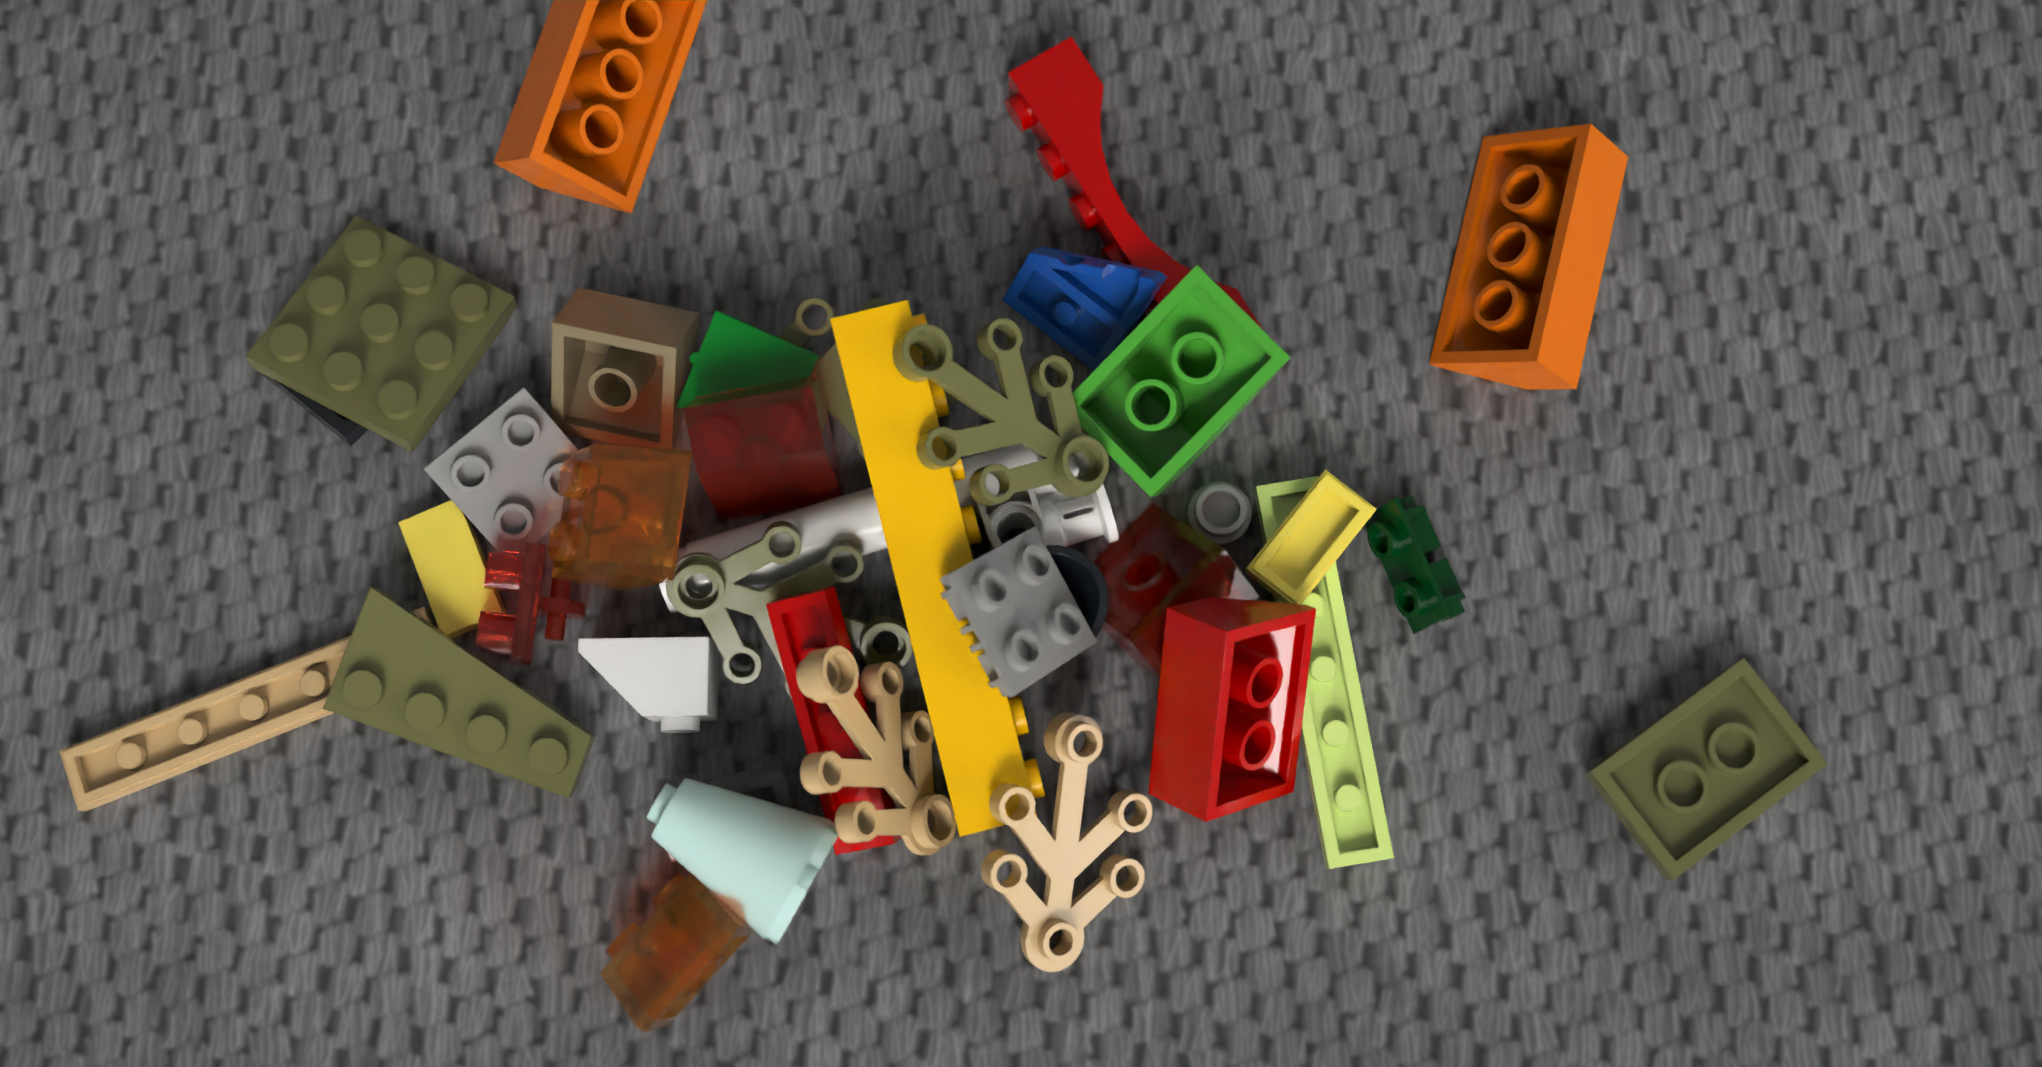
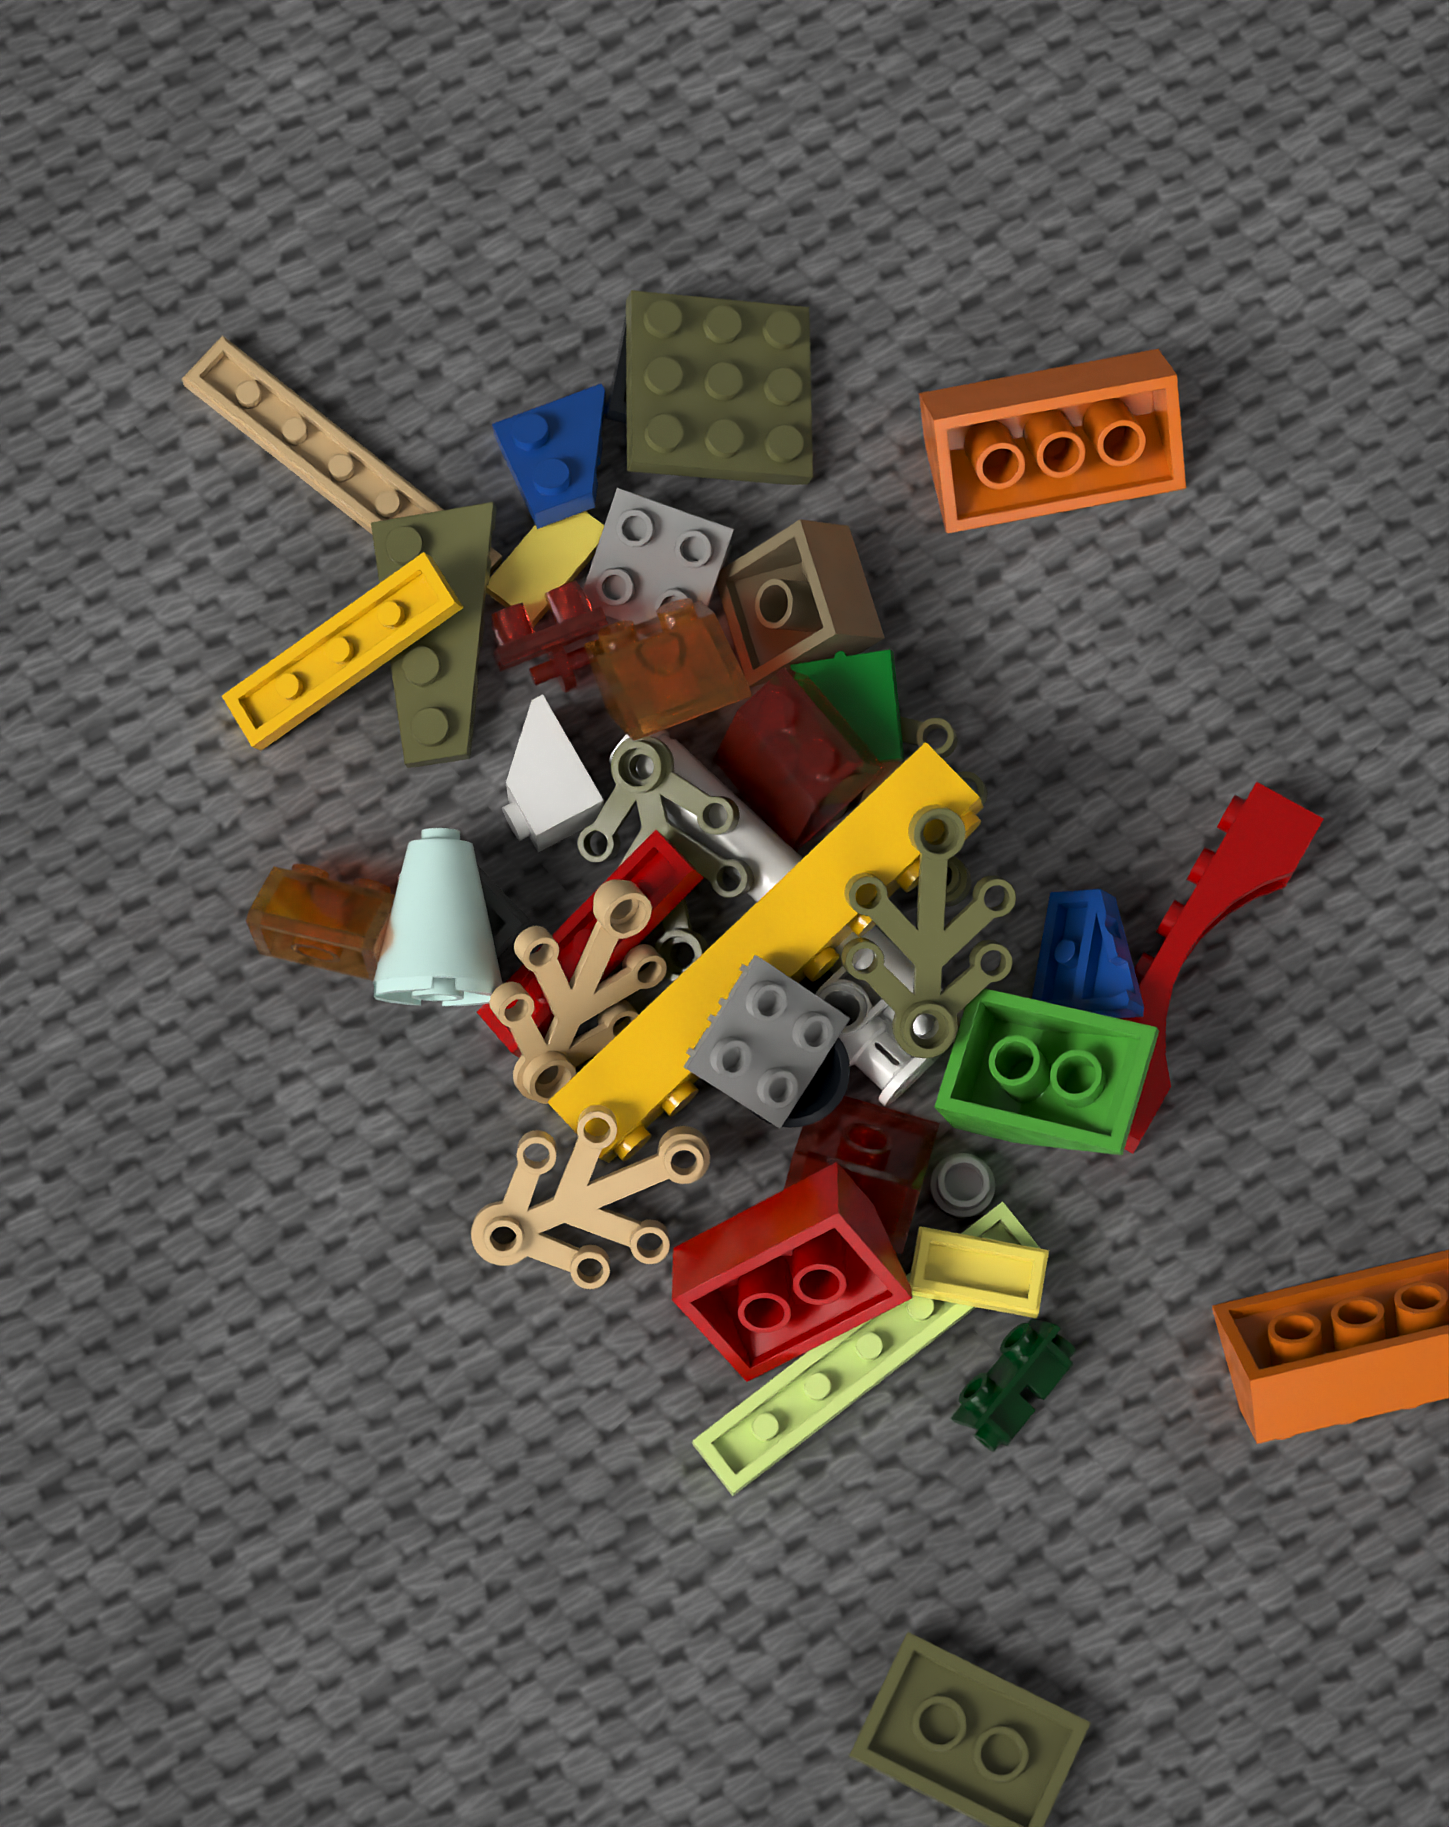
camera: 55 degrees right, 5 degrees down
(358, 507) = (556, 454): none -> blue wing
(430, 800) = (342, 651): none -> yellow plate

